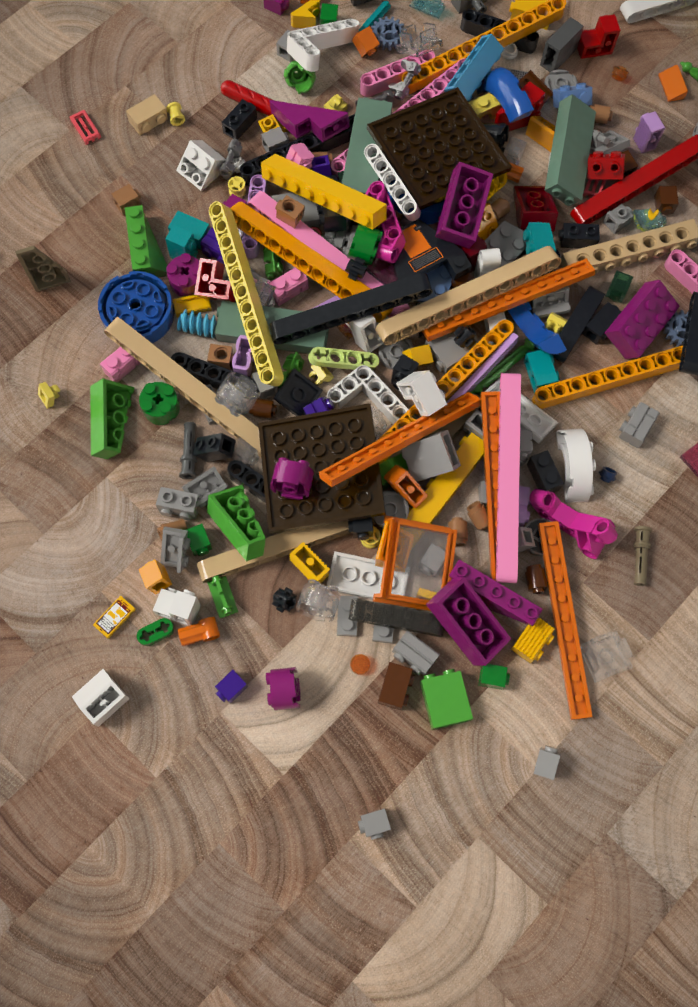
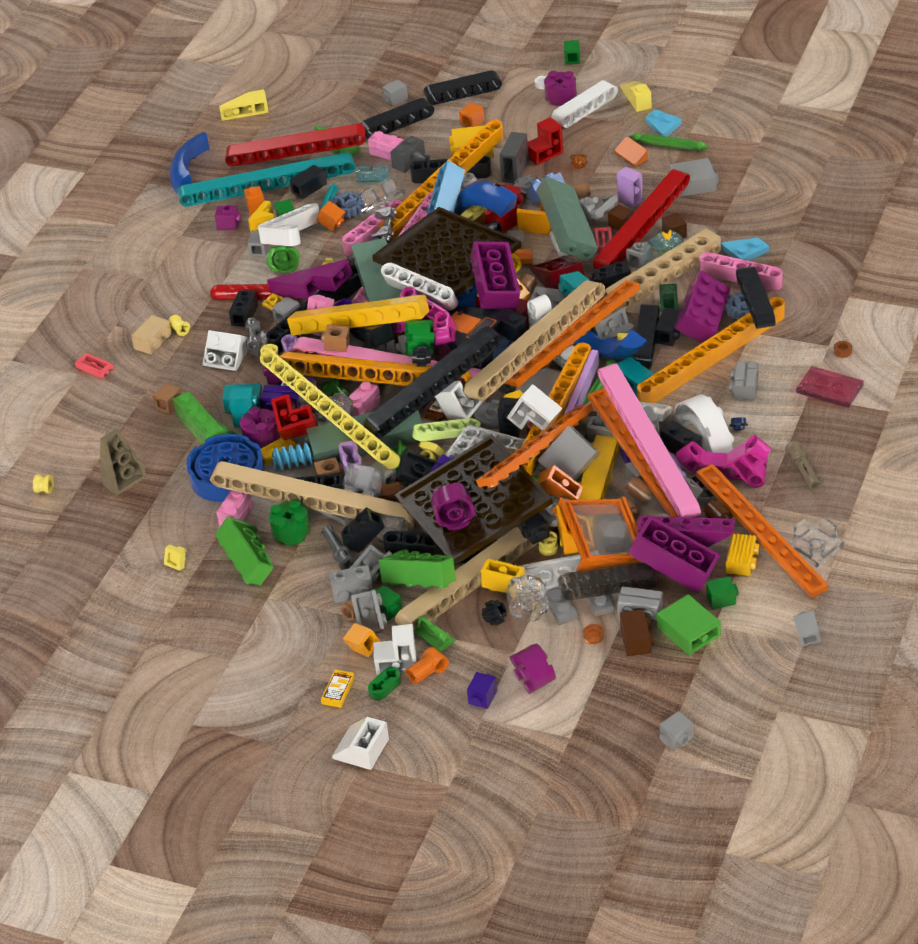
camera: 15 degrees left, 30 degrees down
(465, 336) = (549, 370): black gear -> none
(606, 166) = (606, 218): red brick -> none

